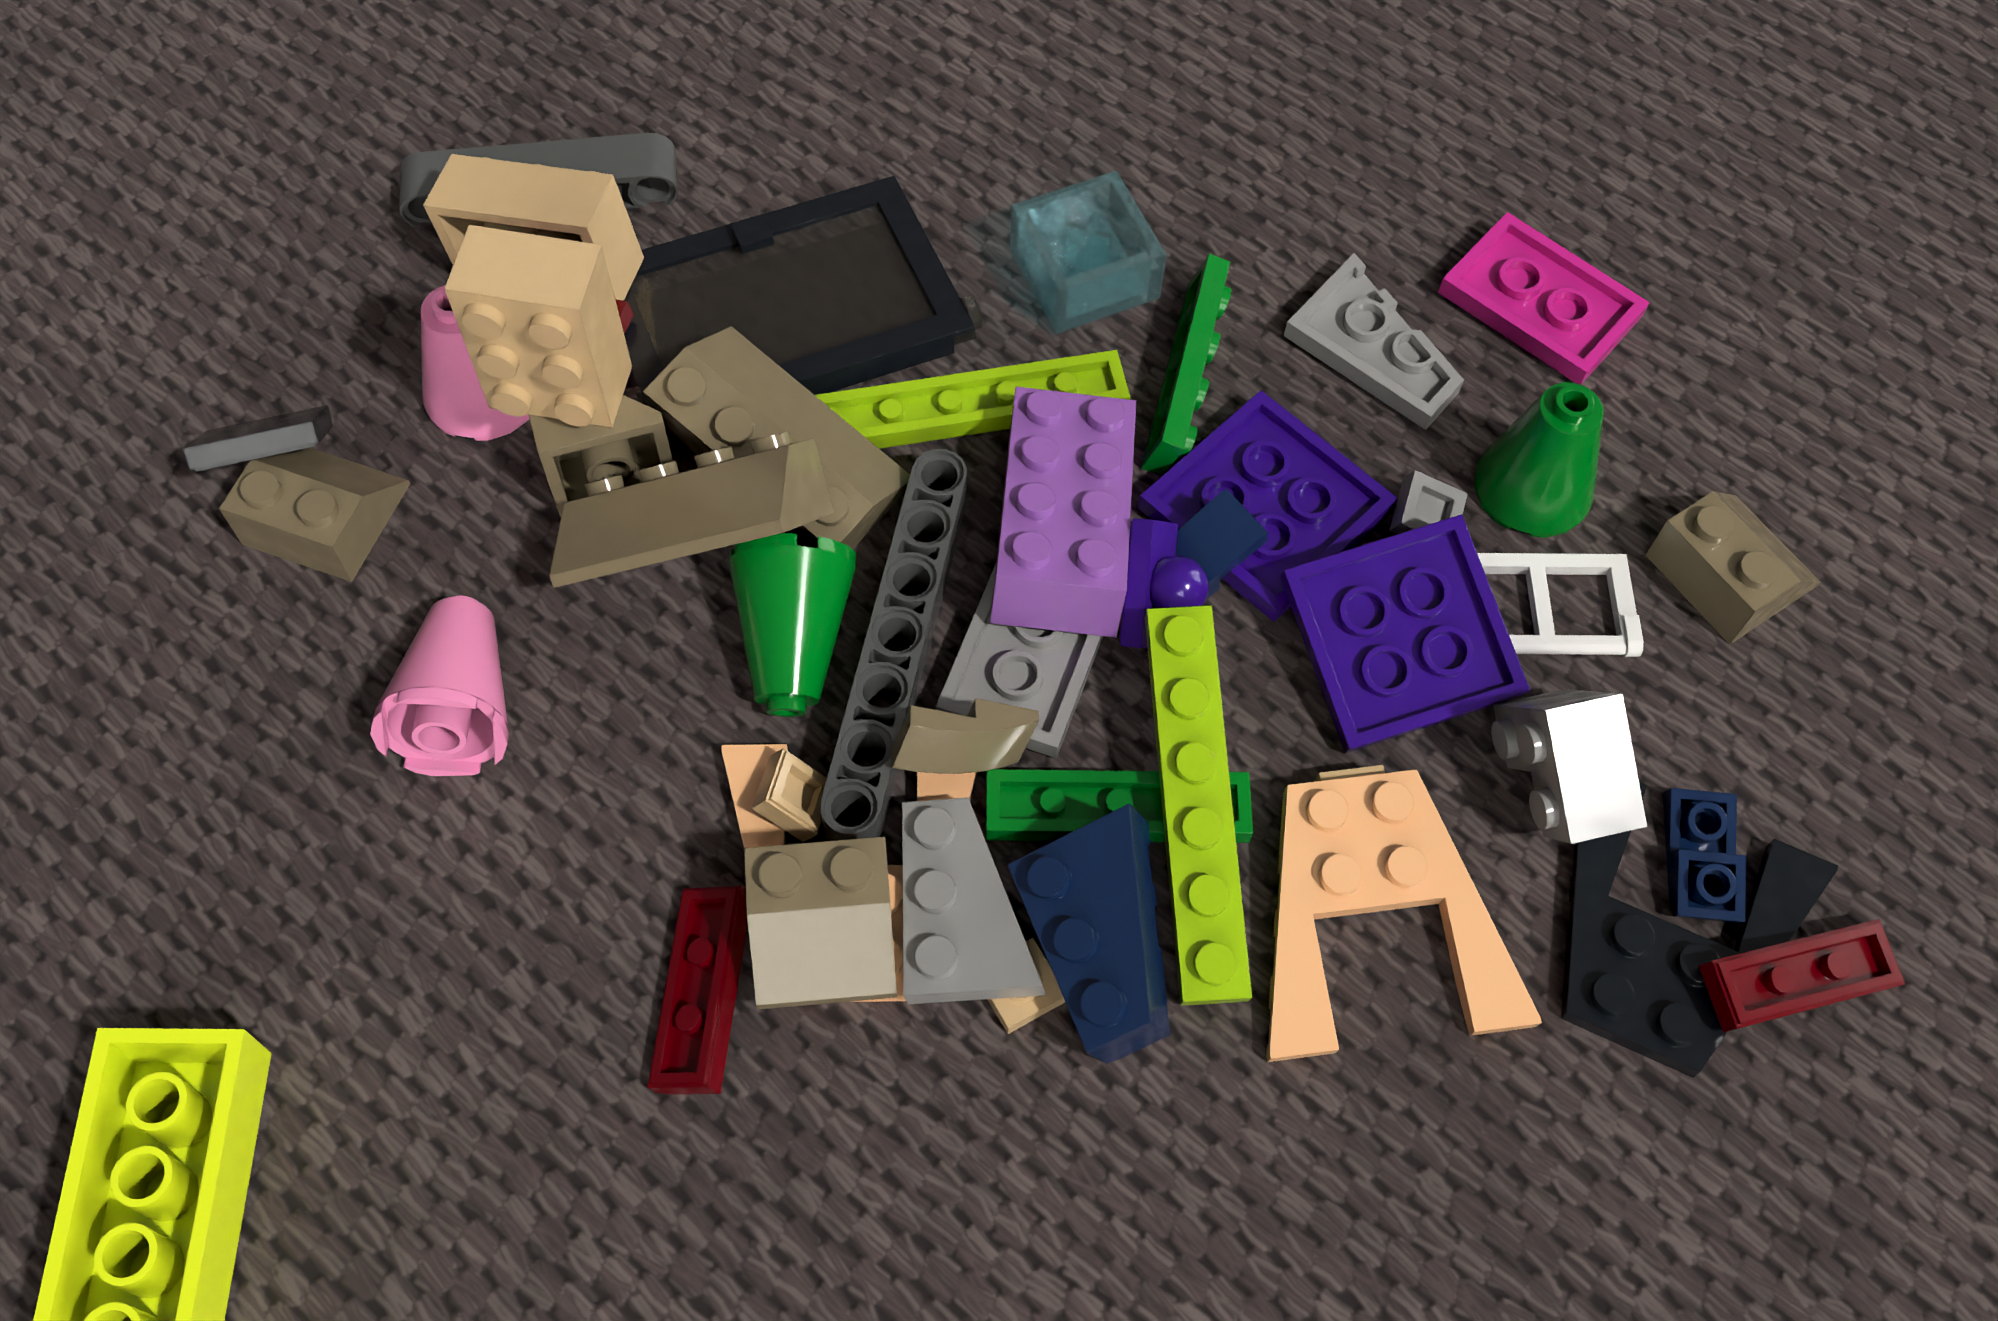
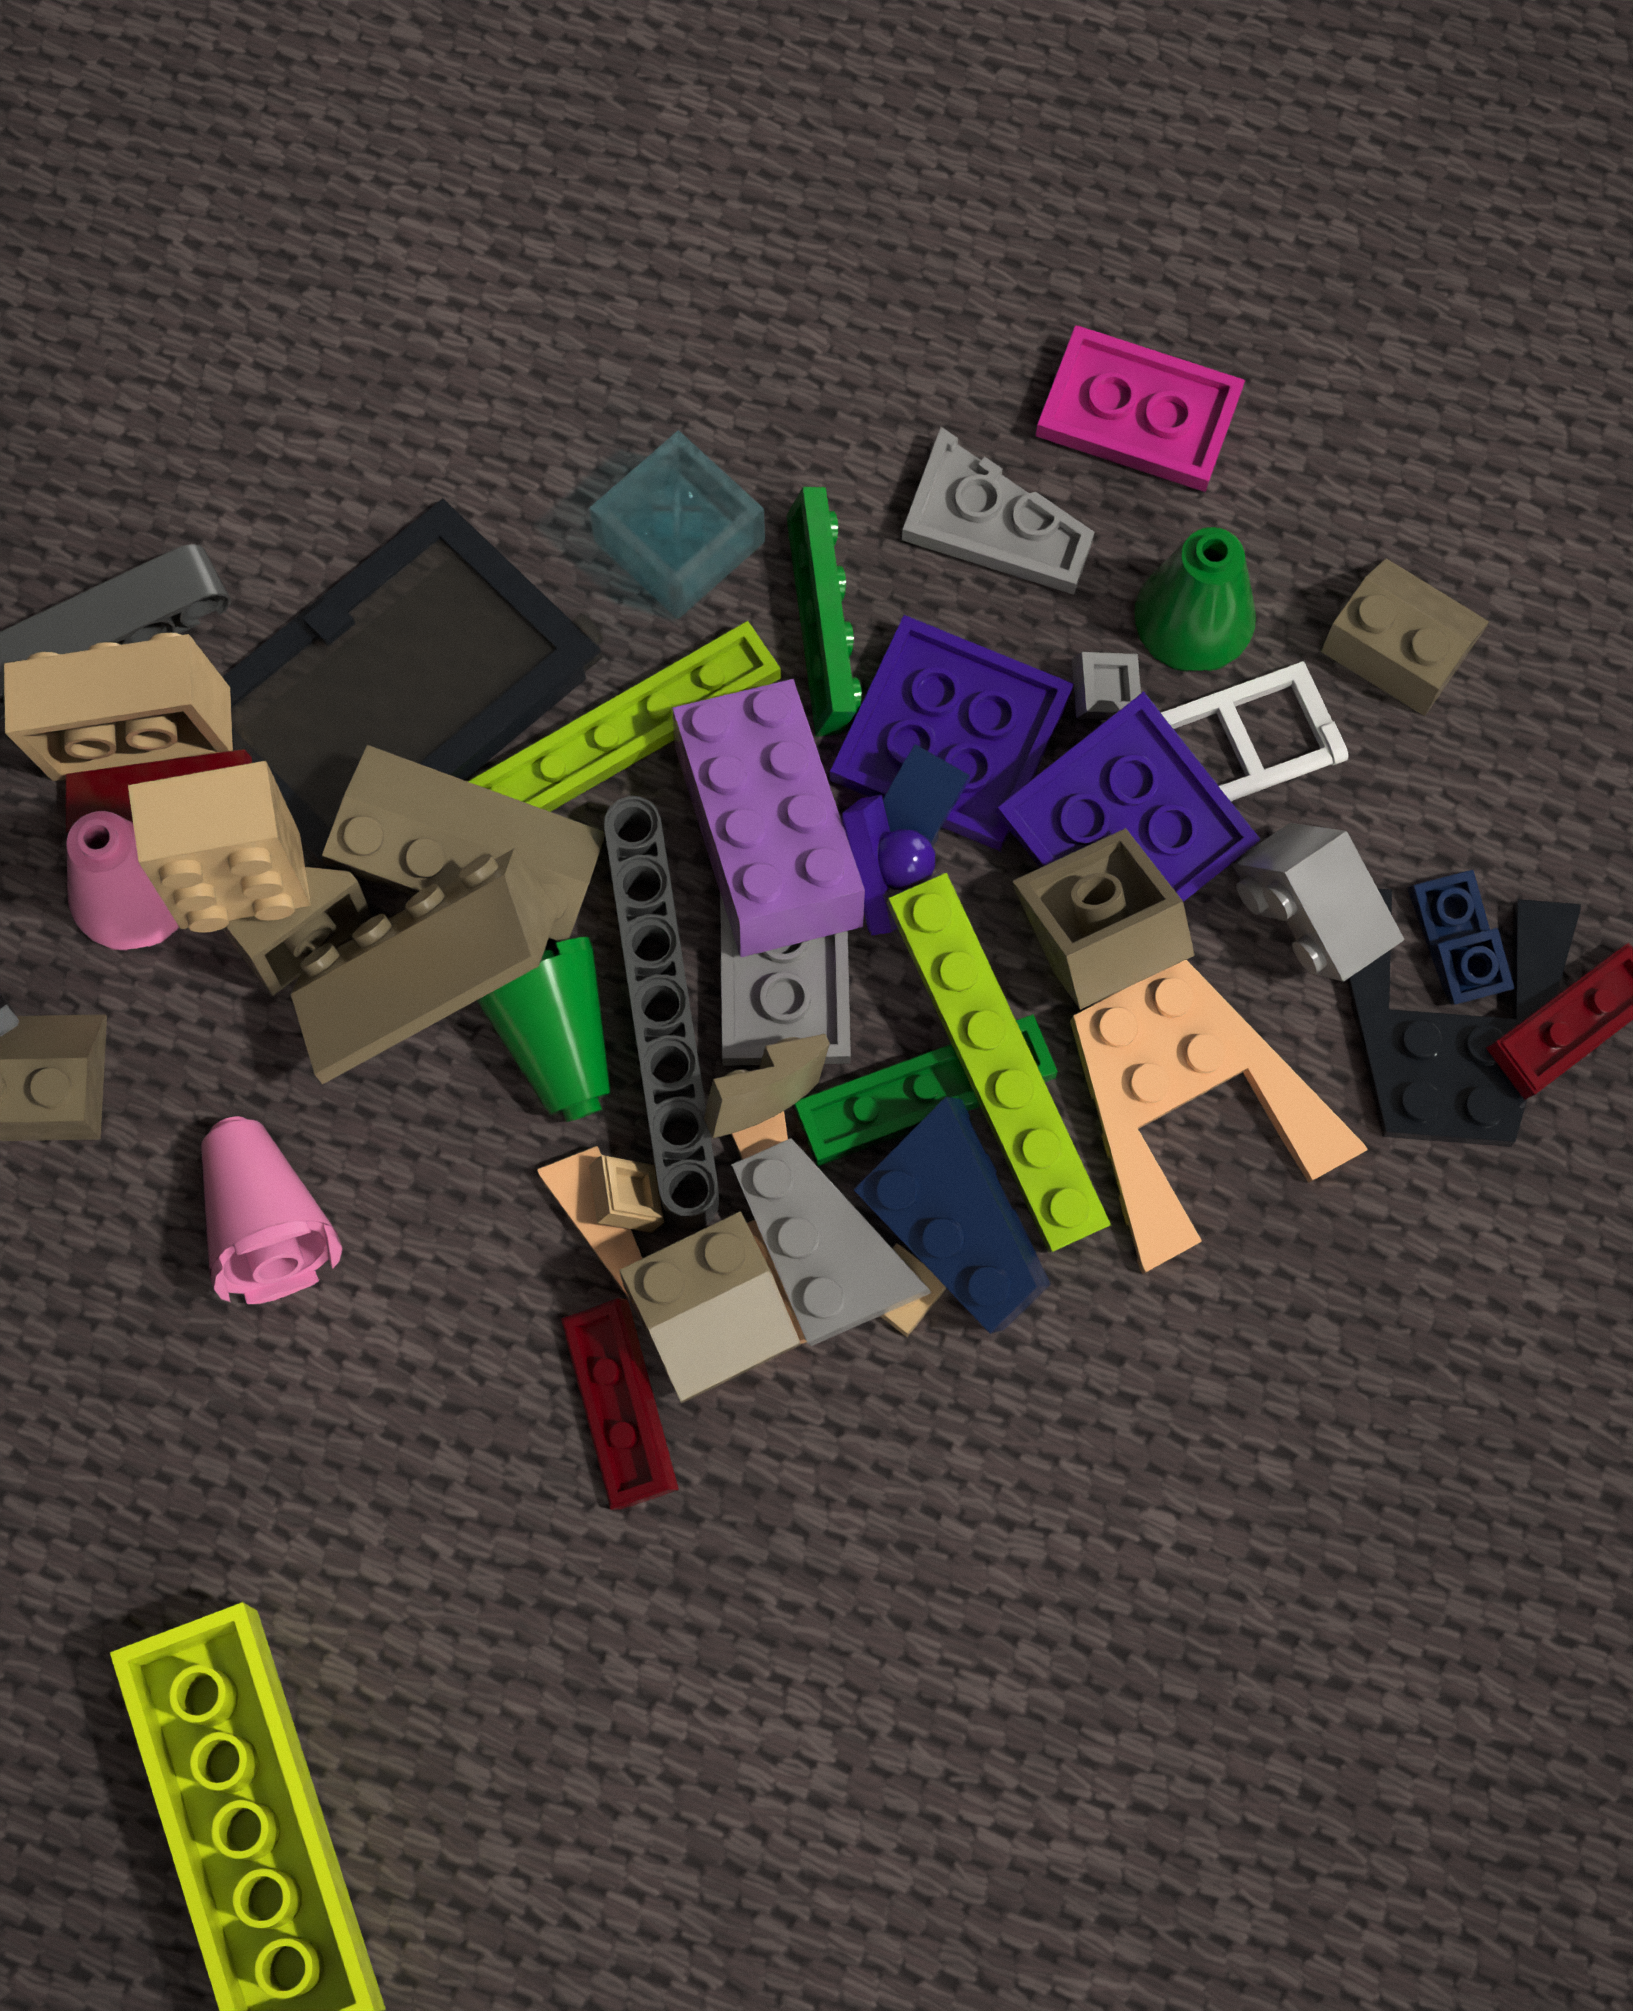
camera: 20 degrees left, 10 degrees up
(1352, 705) = (1105, 918): none -> dark tan slope

